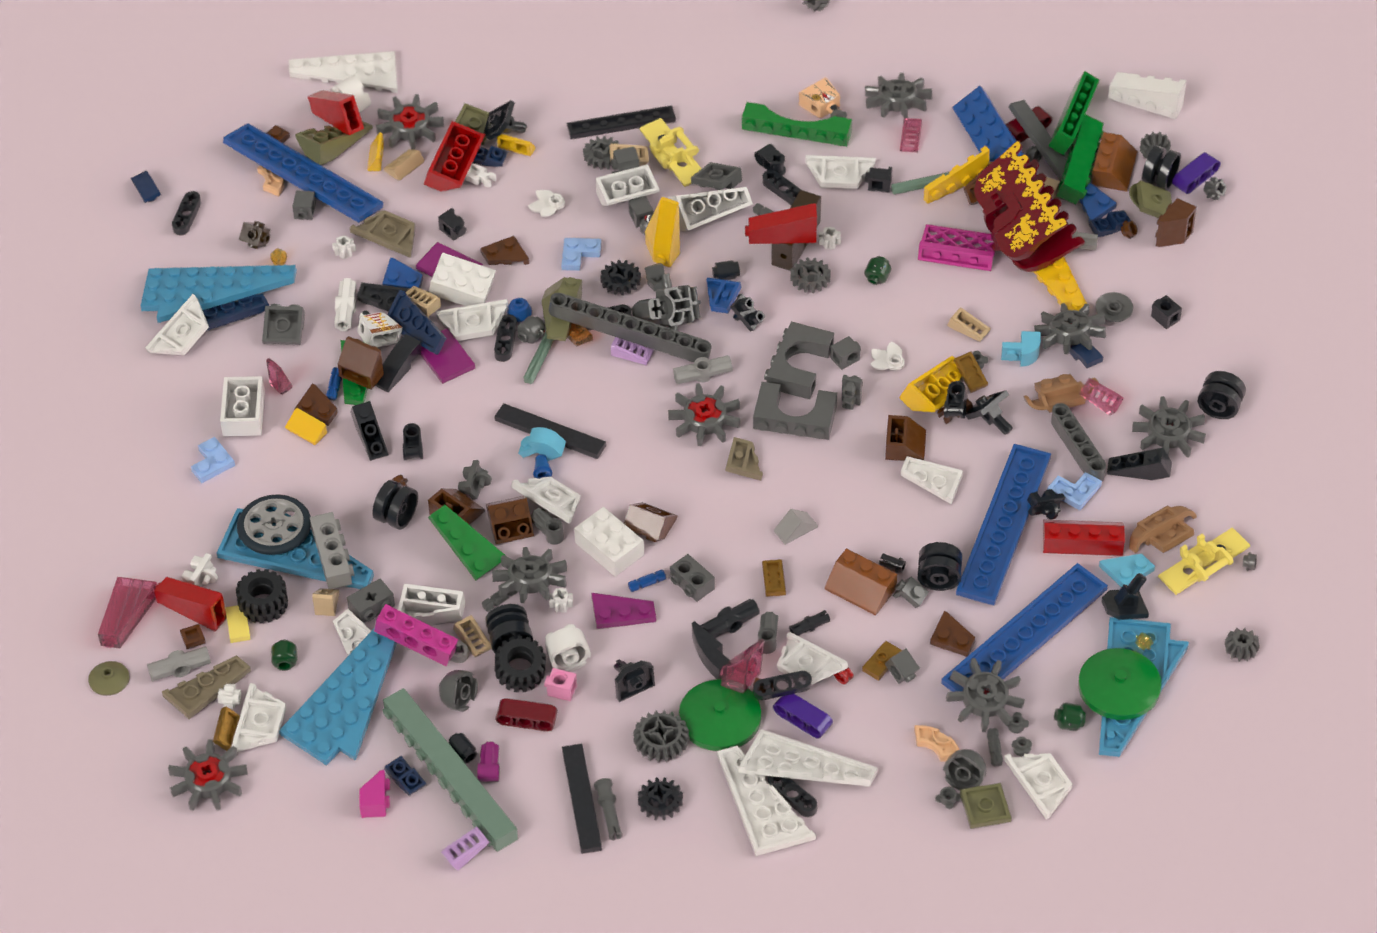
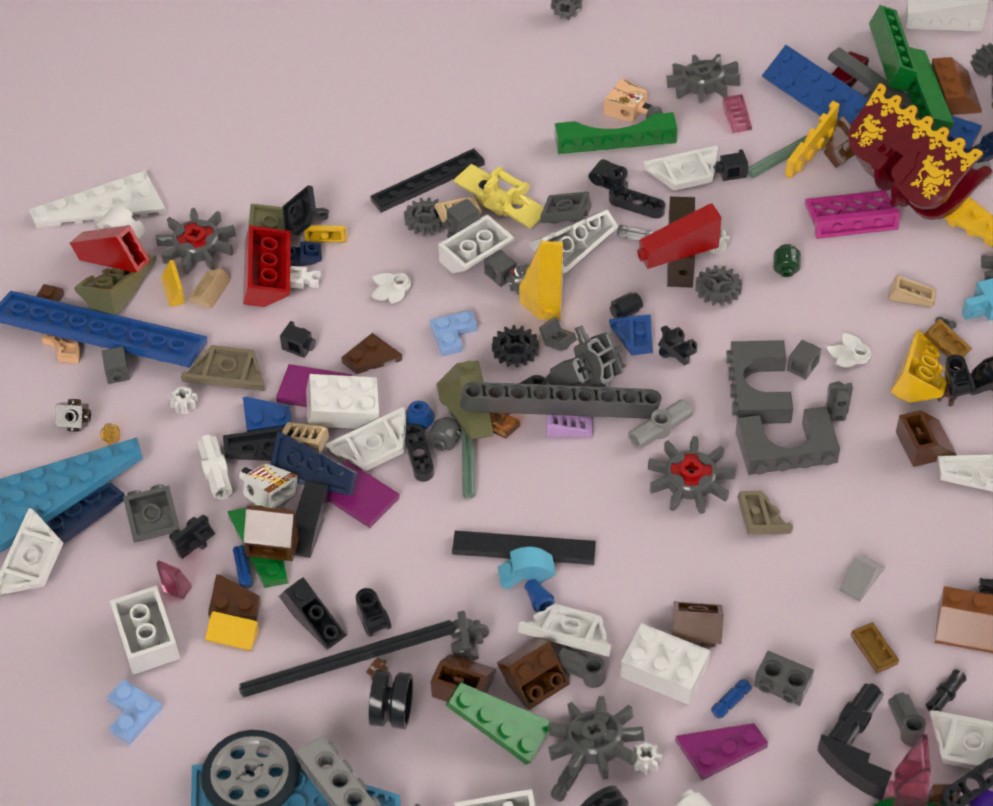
camera: 20 degrees left, 0 degrees up
(306, 350) = (192, 537): none -> black hips
(381, 469) = (346, 658): none -> black axle

